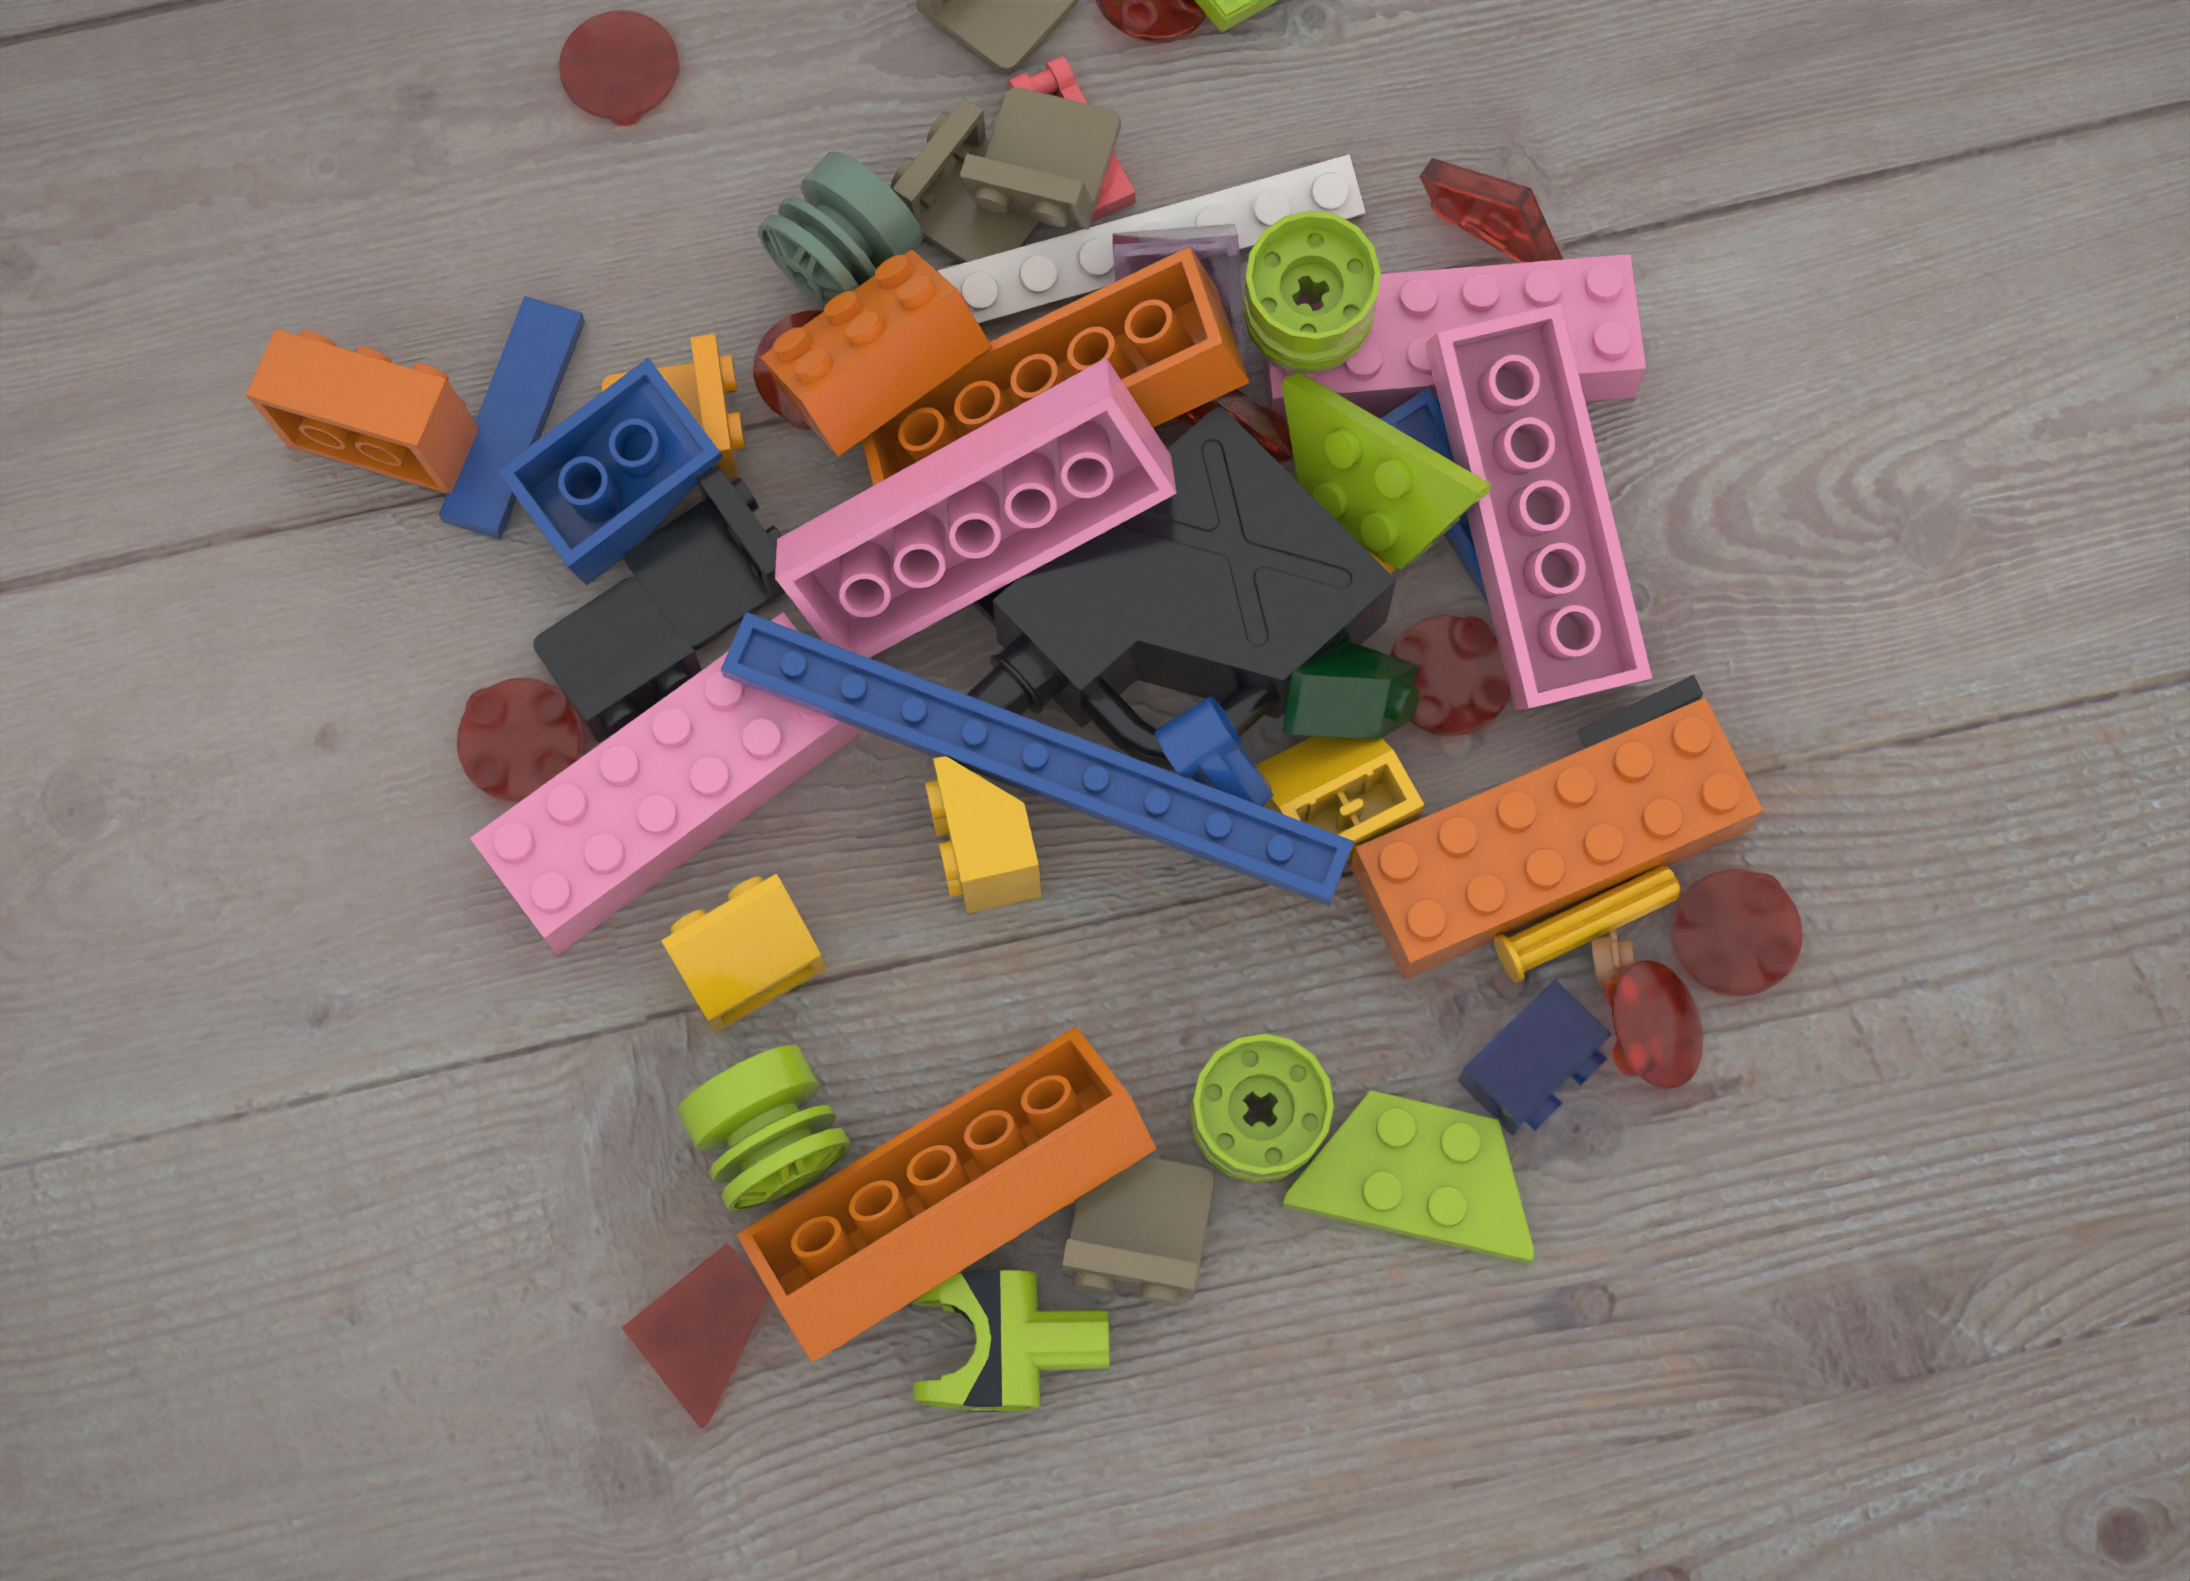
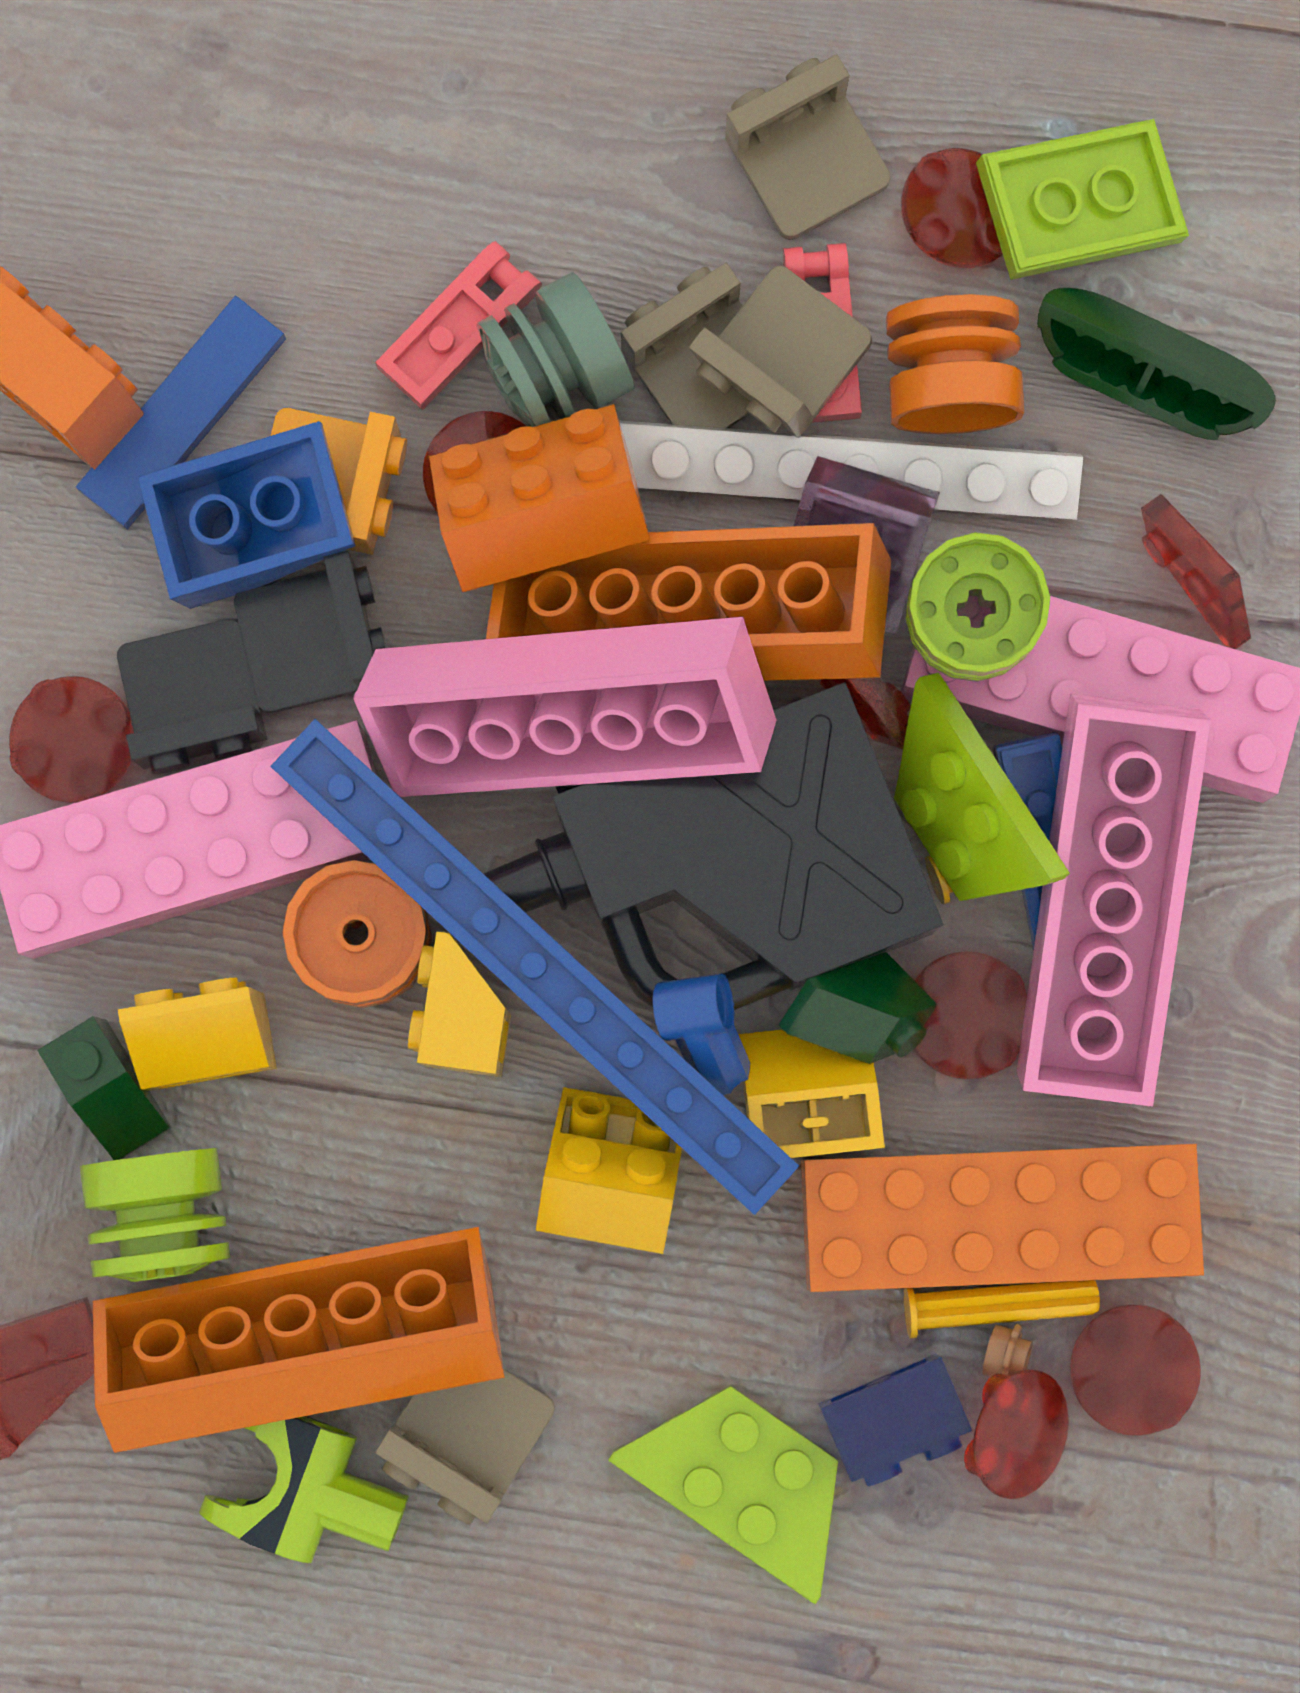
camera: 20 degrees right, 10 degrees up
(619, 65) = (413, 87): clear red dish -> none
(666, 1034) = (104, 1087): none -> dark green slope
(733, 253) = (447, 331): none -> coral plate
(822, 800) = (328, 961): none -> orange wheel
(1180, 935) = (608, 1173): none -> yellow slope
(1202, 114) = (954, 364): none -> orange wheel
(1261, 1070) = (599, 1406): lime wheel -> none
(1377, 61) = (1152, 365): none -> dark green brick
(1643, 711) = (1129, 1133): black tile -> none

